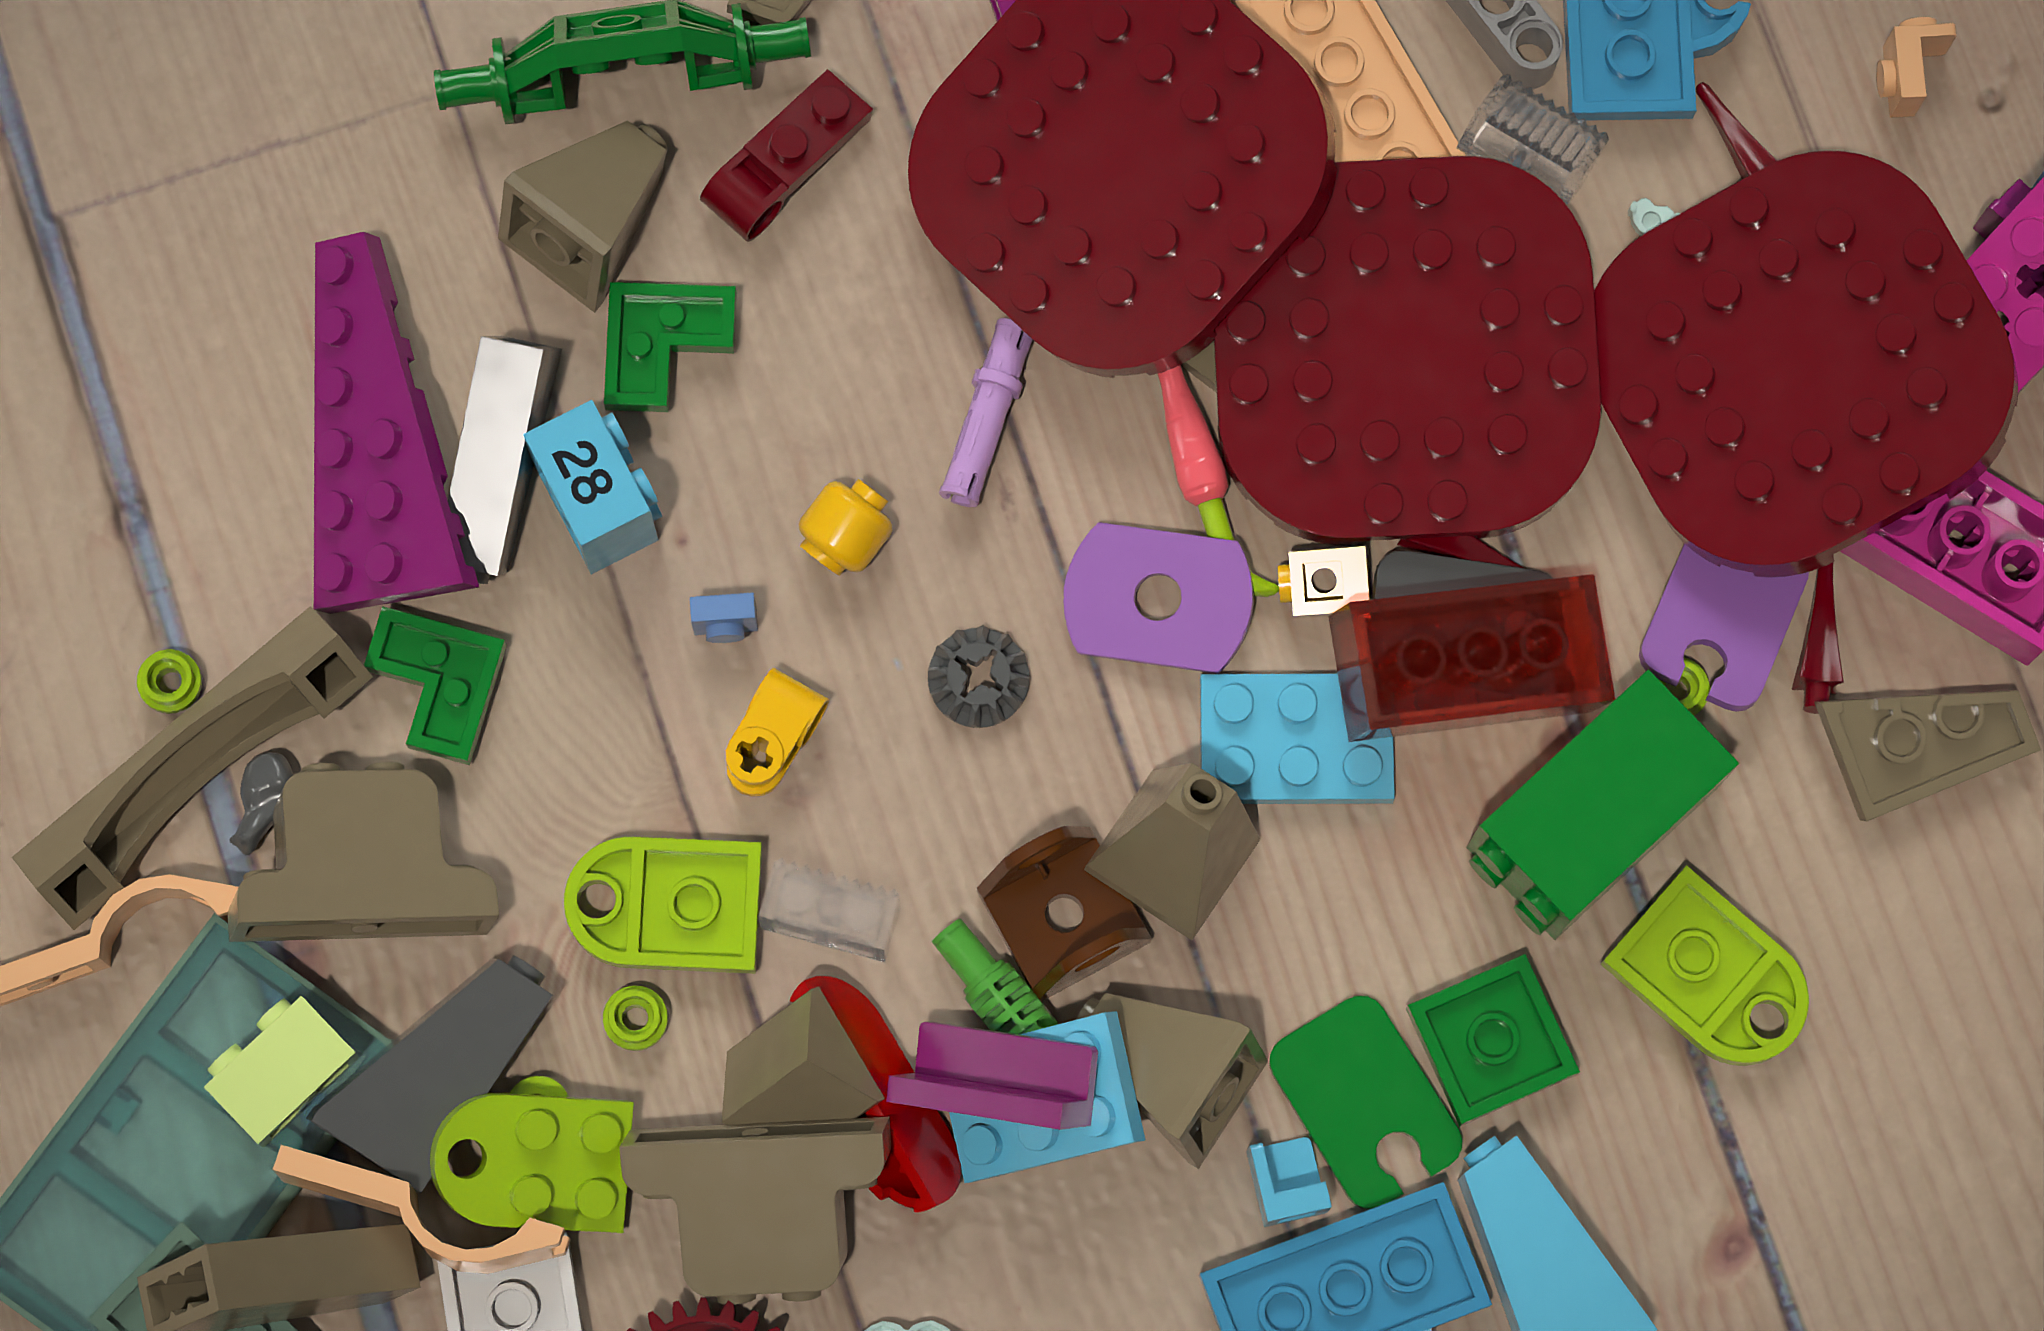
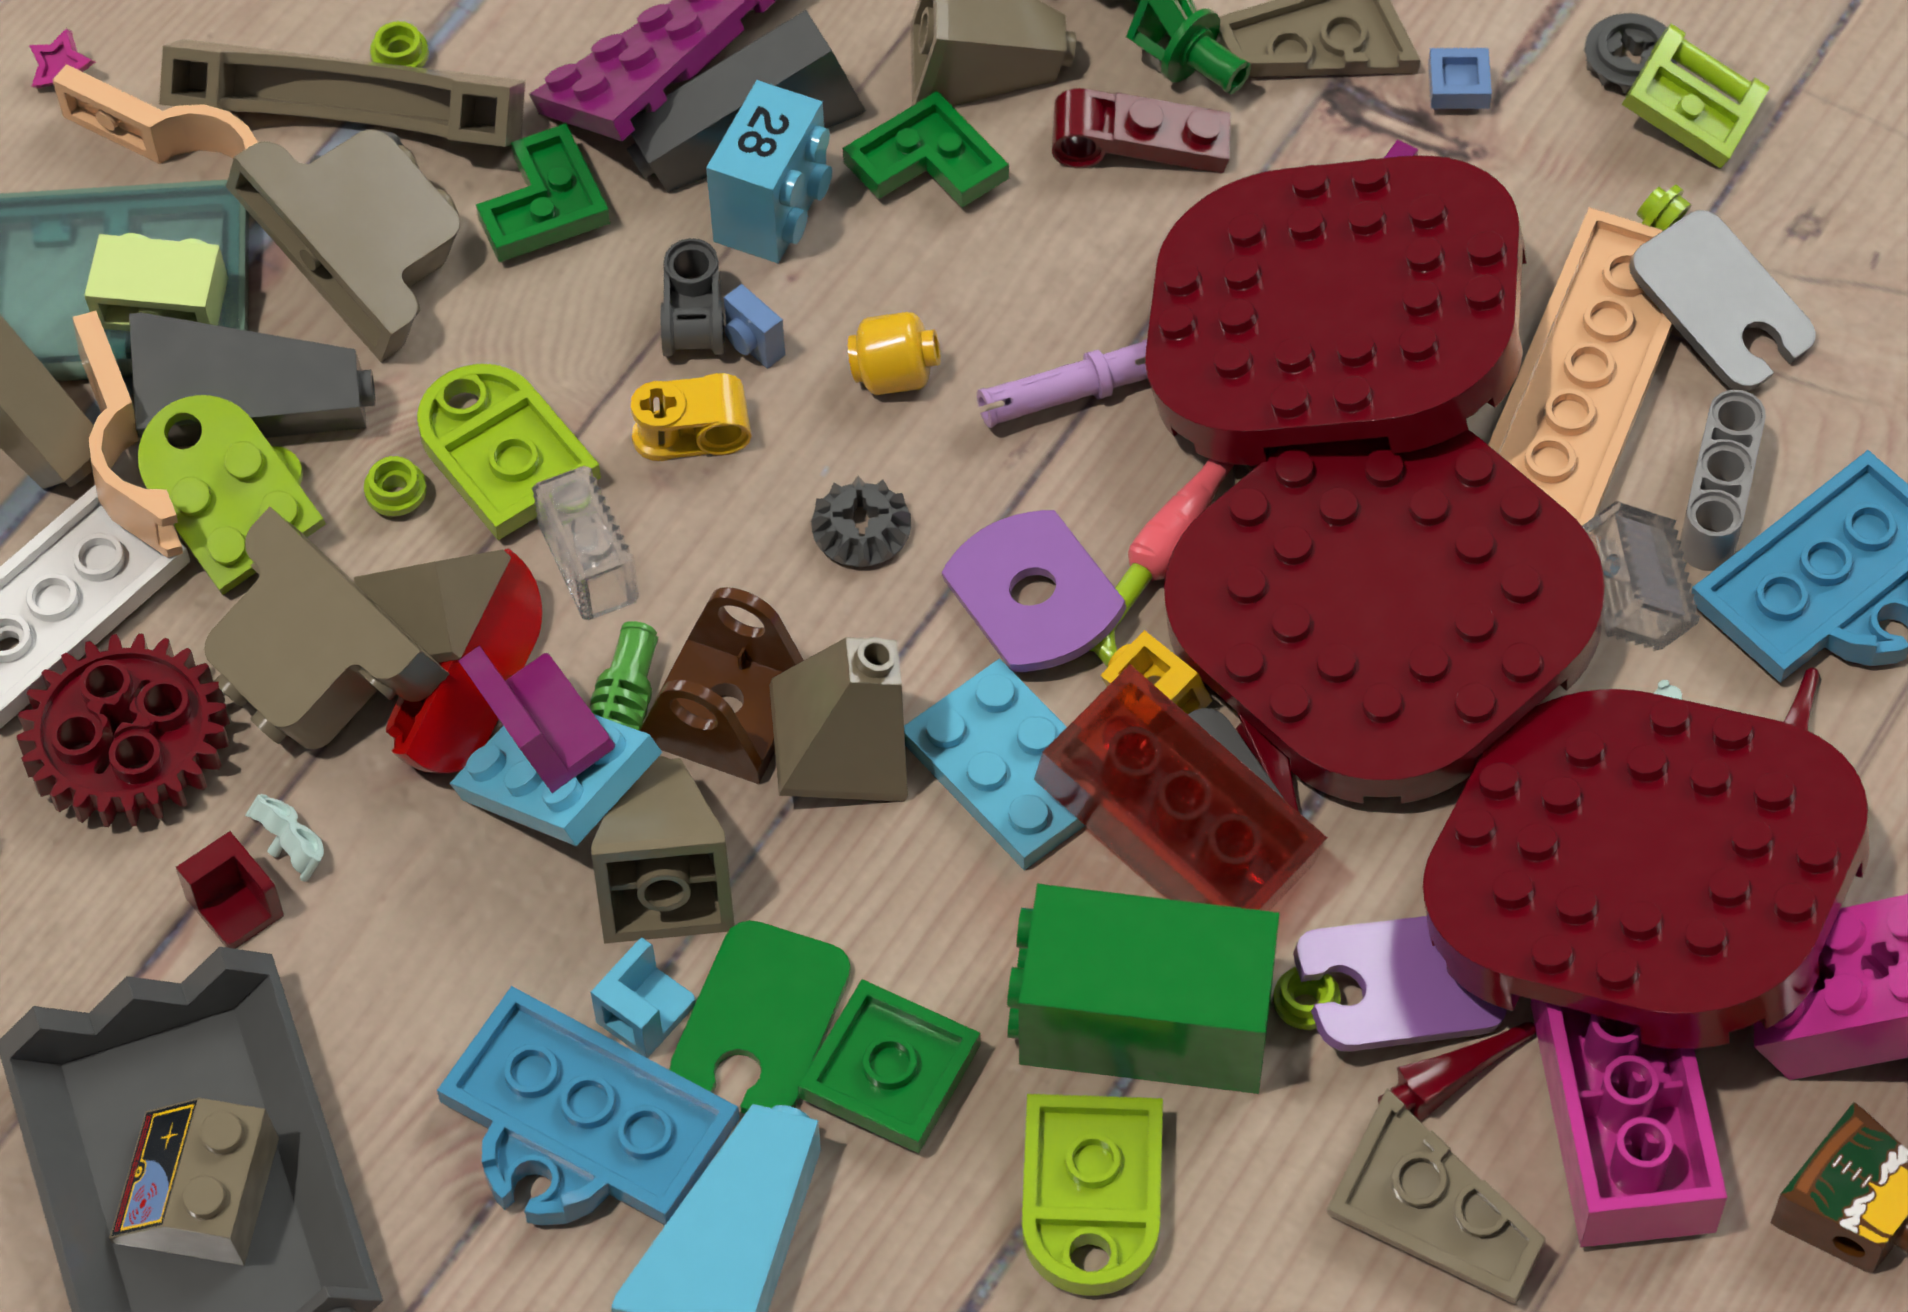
camera: 55 degrees right, 20 degrees down
(662, 647) = (692, 307): none -> dark grey piece

